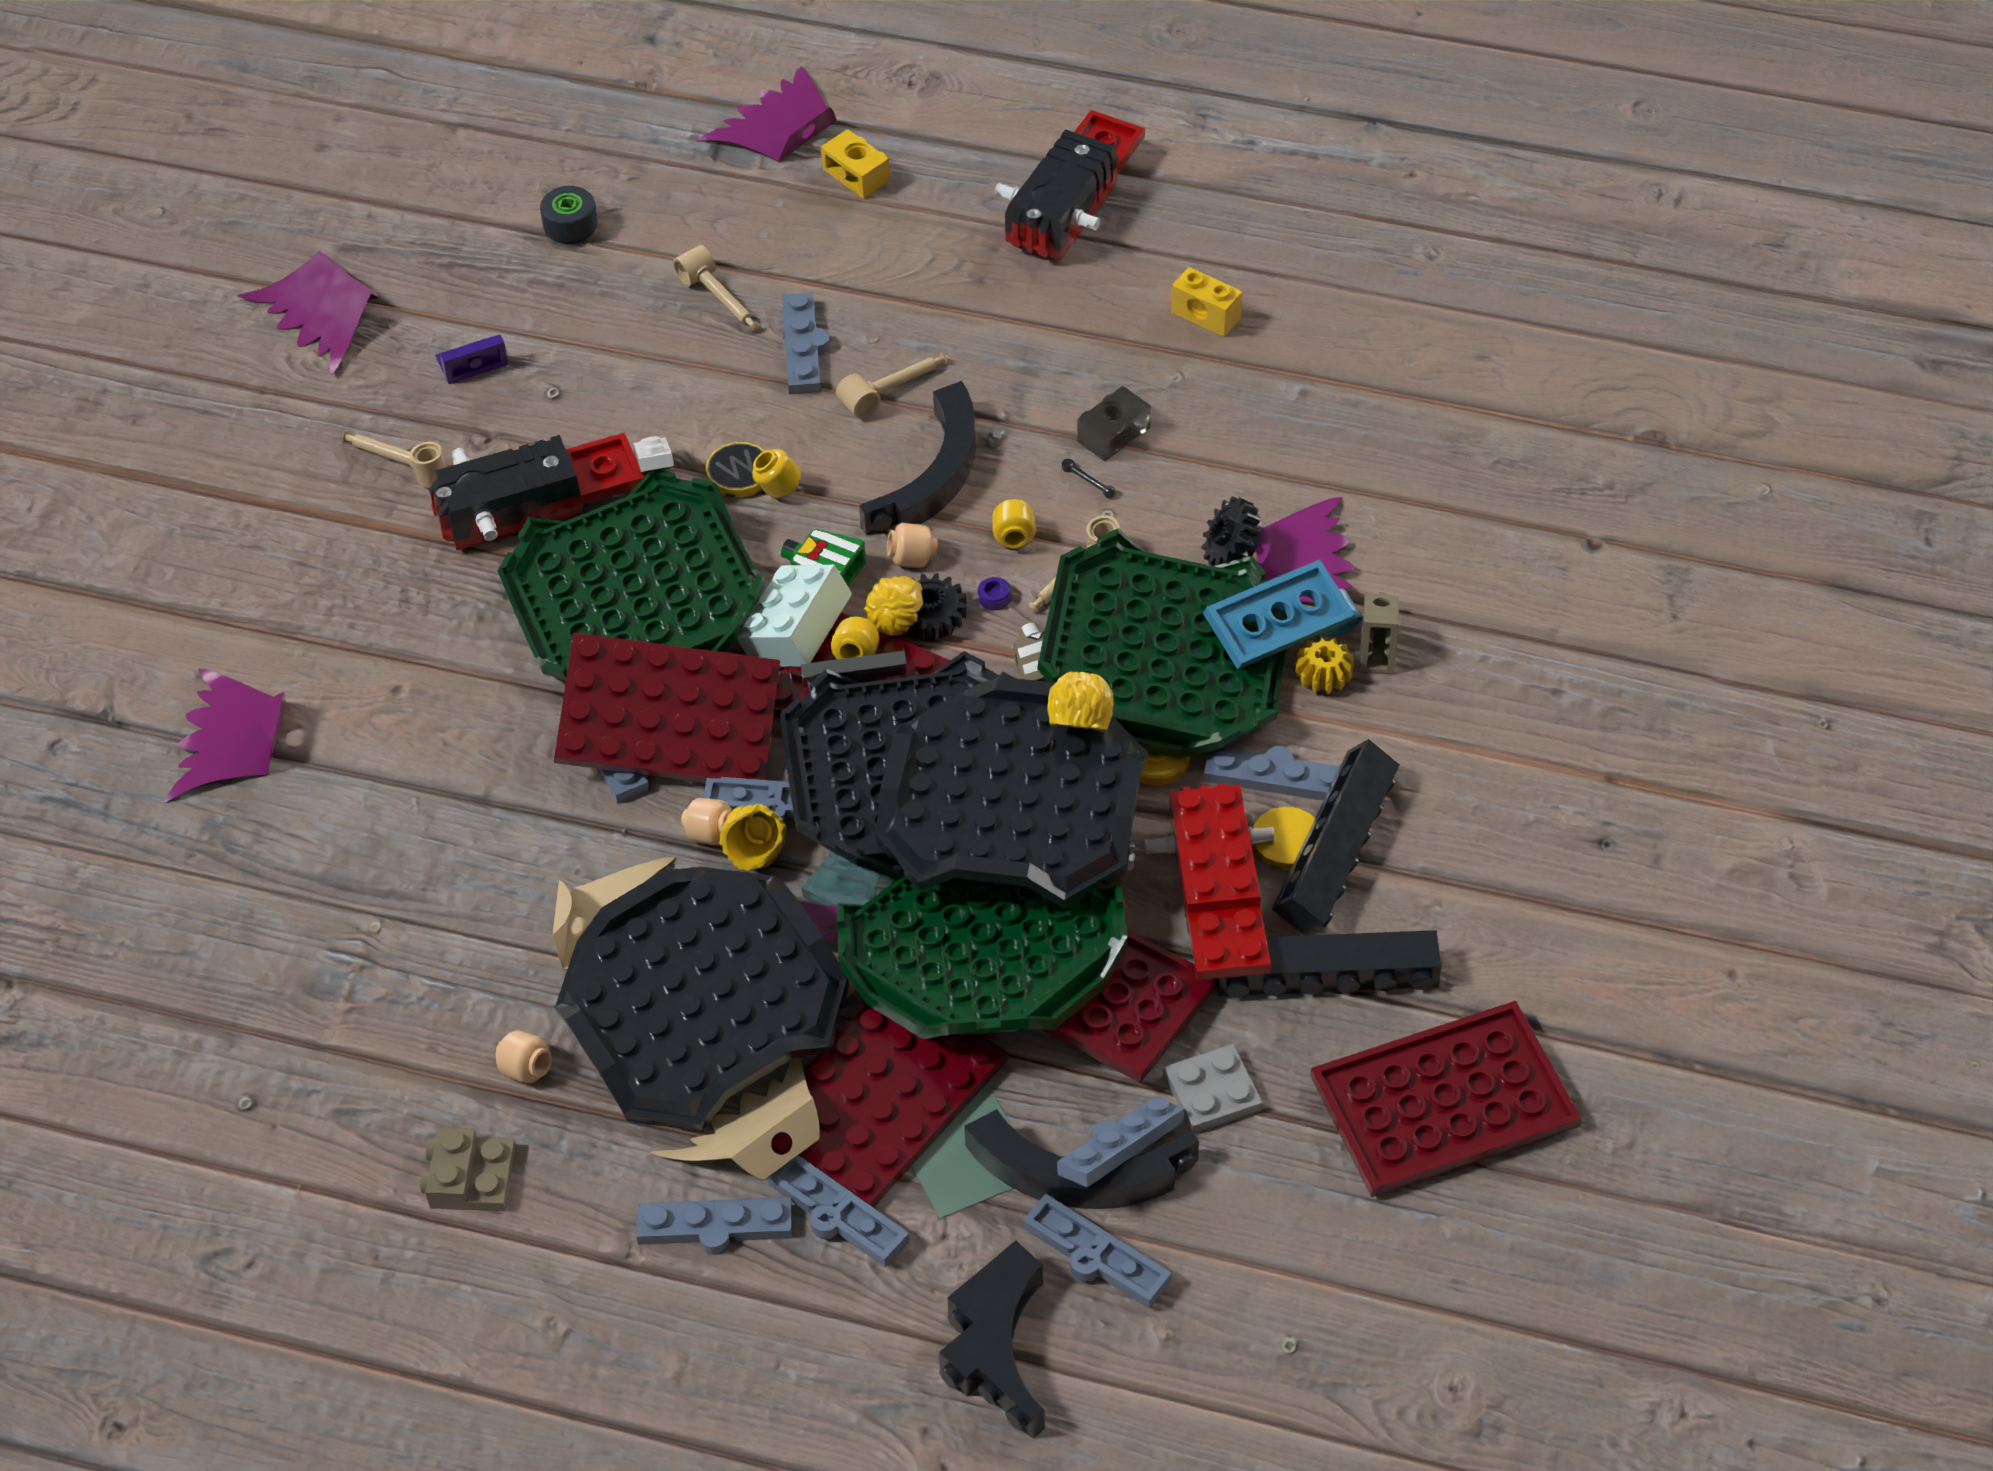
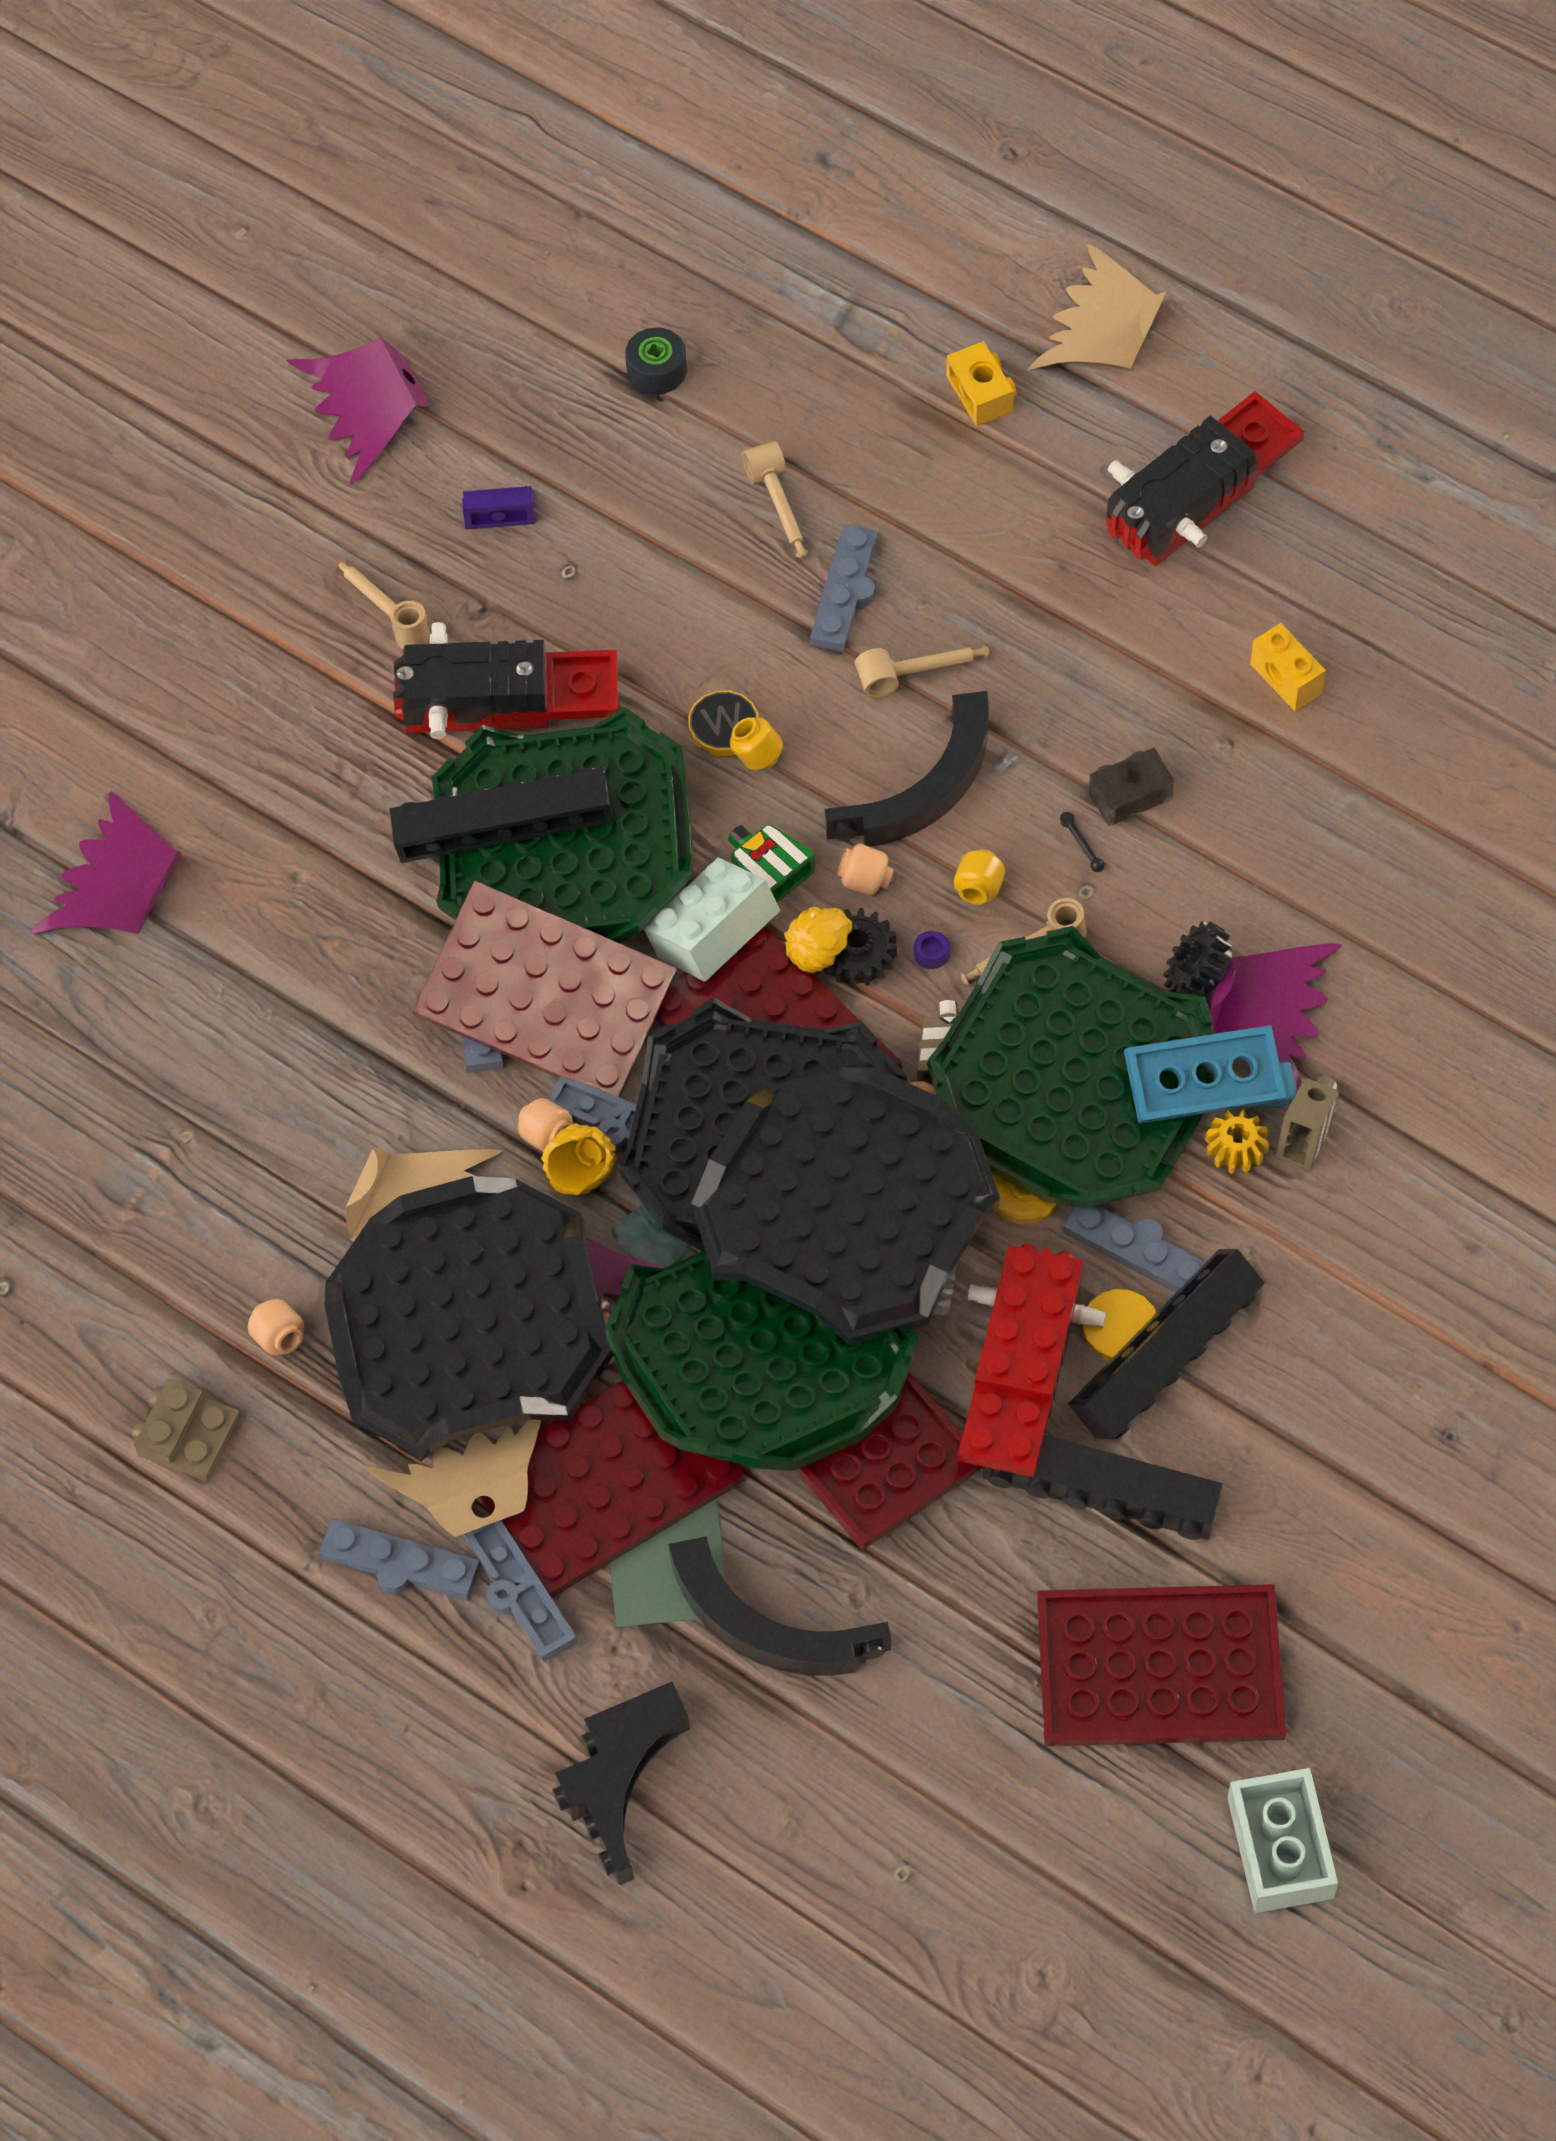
camera: 20 degrees right, 10 degrees up
(574, 581) = (501, 815): none -> black brick
(653, 453) = (634, 687): white plate -> none
(781, 121) = (923, 306): magenta piece -> none
(854, 638) = (760, 970): yellow head -> none
(858, 667) = (748, 1001): dark grey hinge -> none
(944, 94) = (1110, 318): none -> tan piece
(1081, 701) = (942, 1129): yellow hair -> none
(1096, 1252) = (750, 1715): sand blue hinge -> none
(1120, 1140) = (814, 1609): sand blue hinge -> none
(1213, 1088) = (934, 1578): light grey plate -> none
(1620, 1204) = (1282, 1840): none -> light aqua brick

